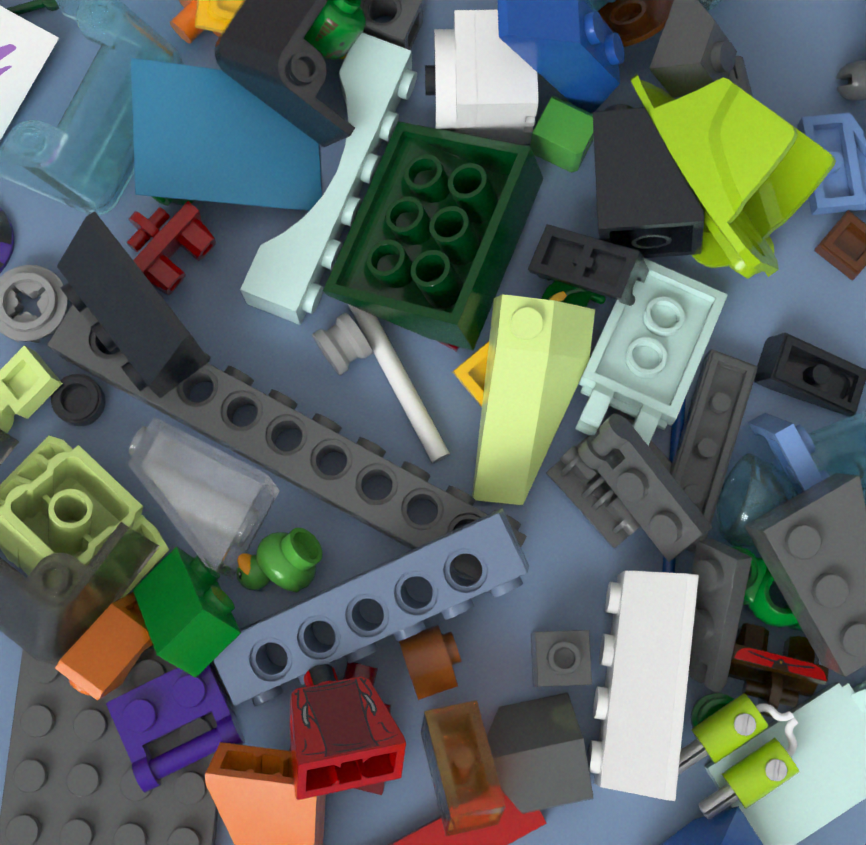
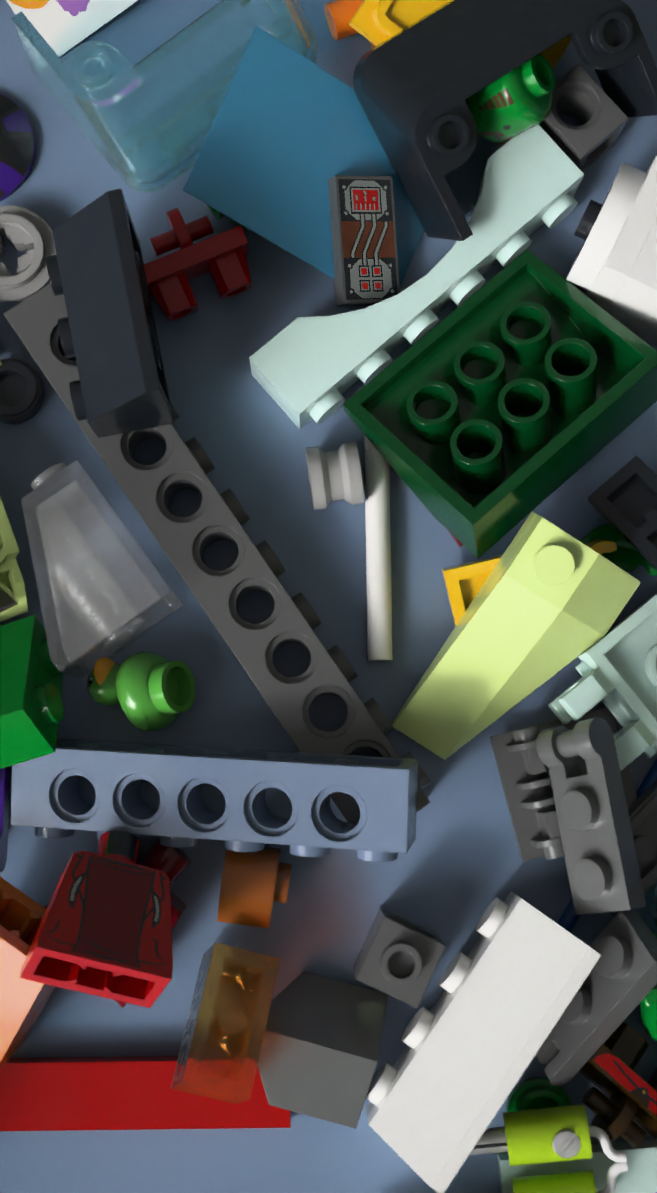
camera: 20 degrees right, 5 degrees up
(279, 170) = (363, 239): none -> tile

